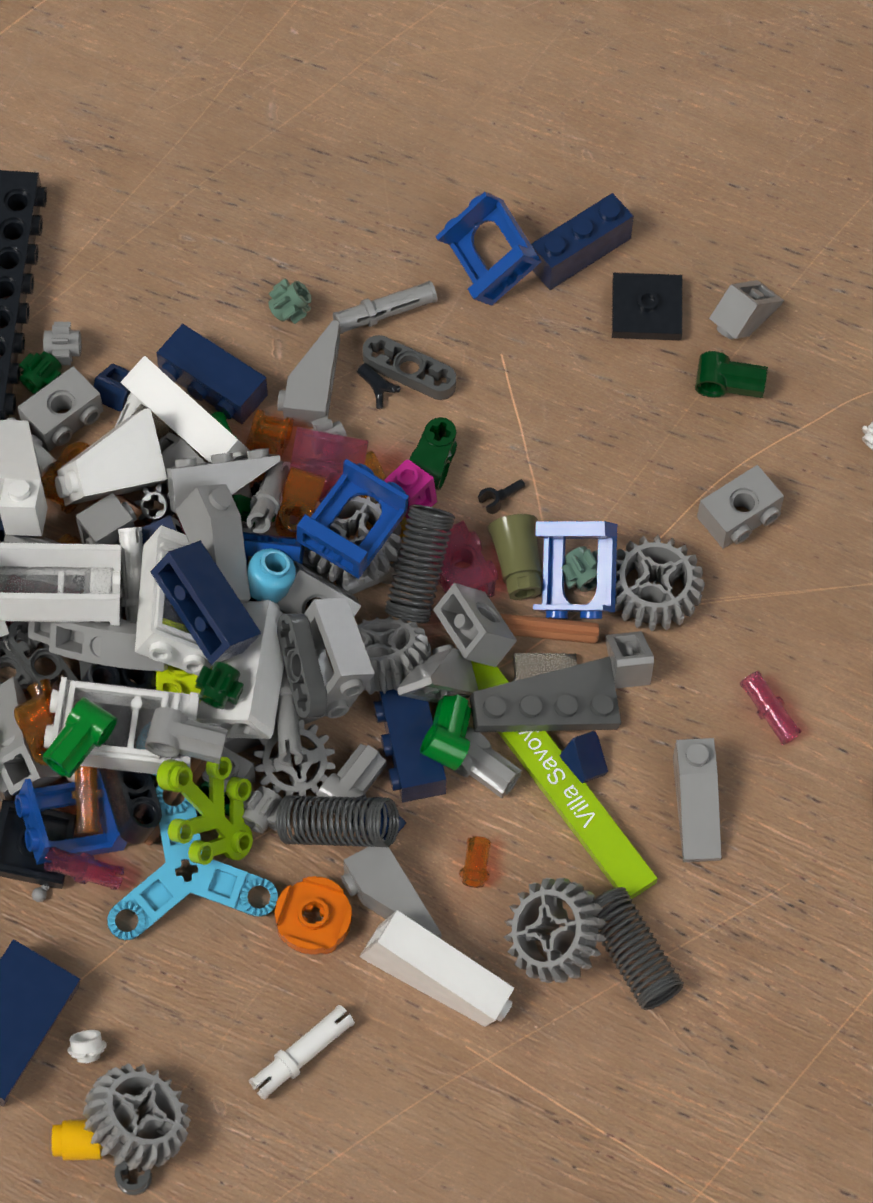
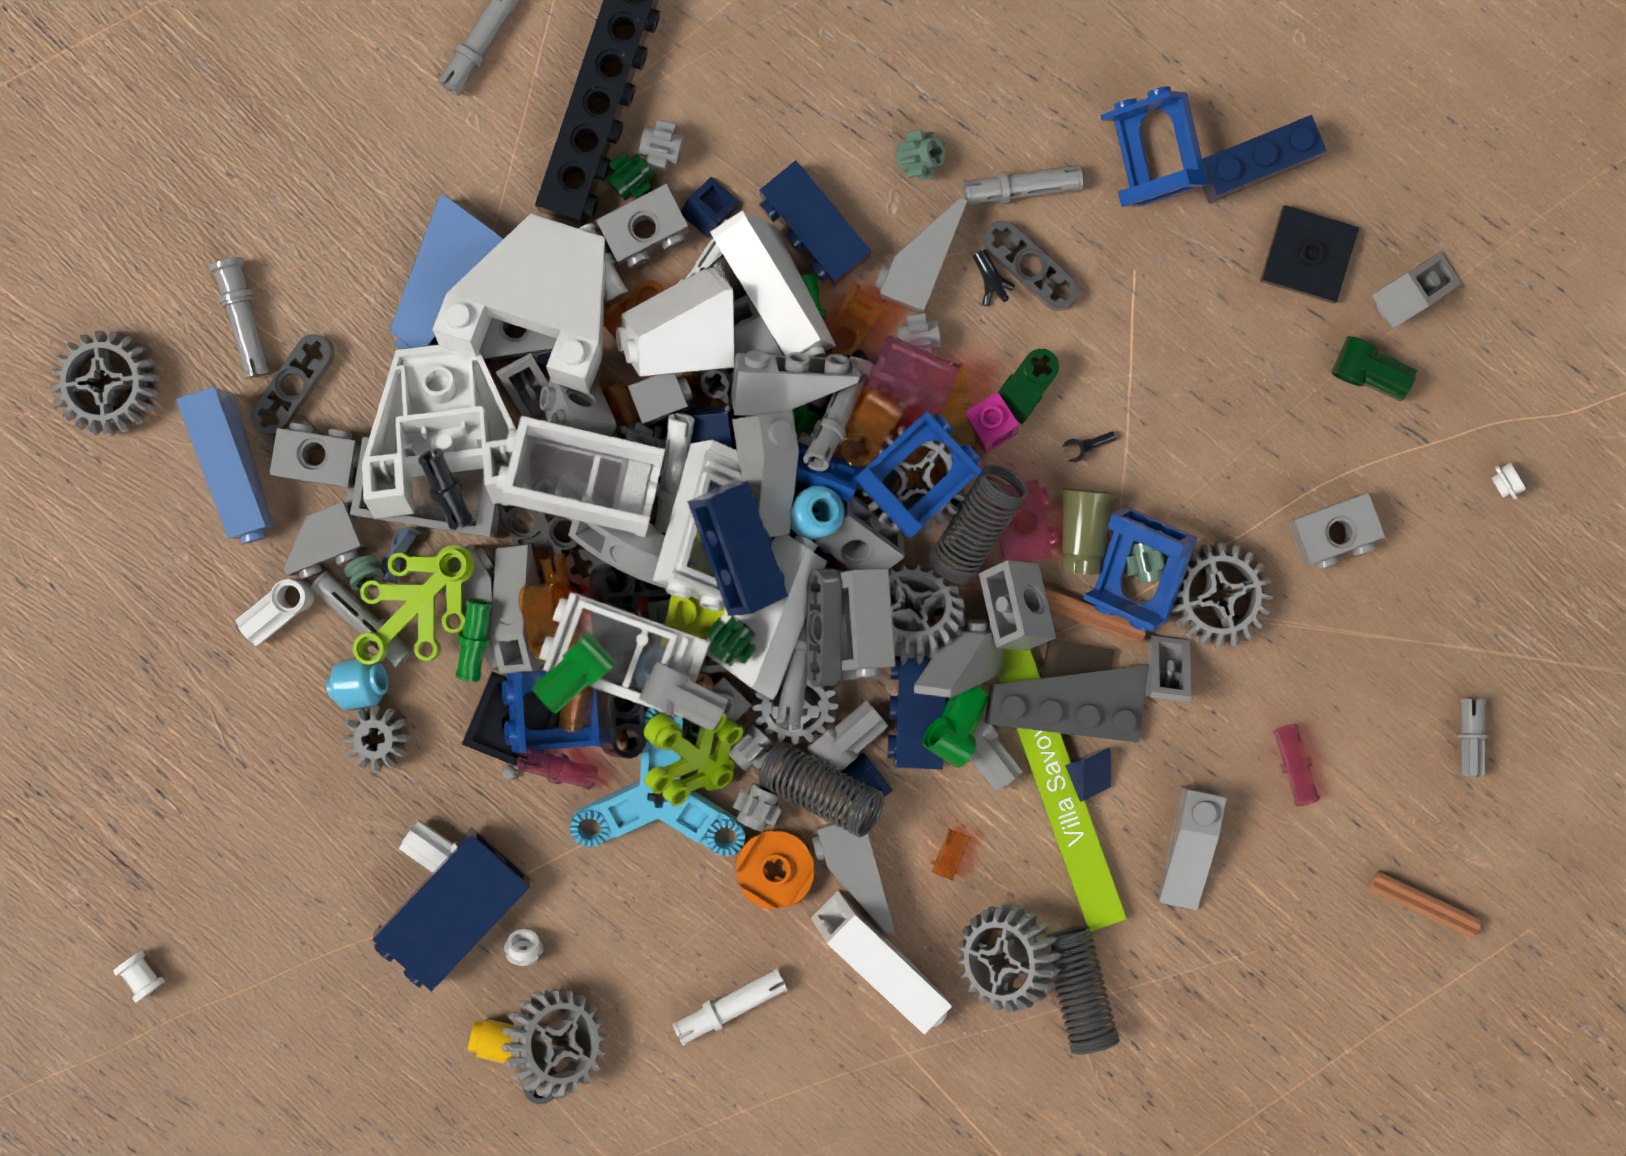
camera: 15 degrees right, 25 degrees up
(282, 860) = (757, 807): none -> light grey gear

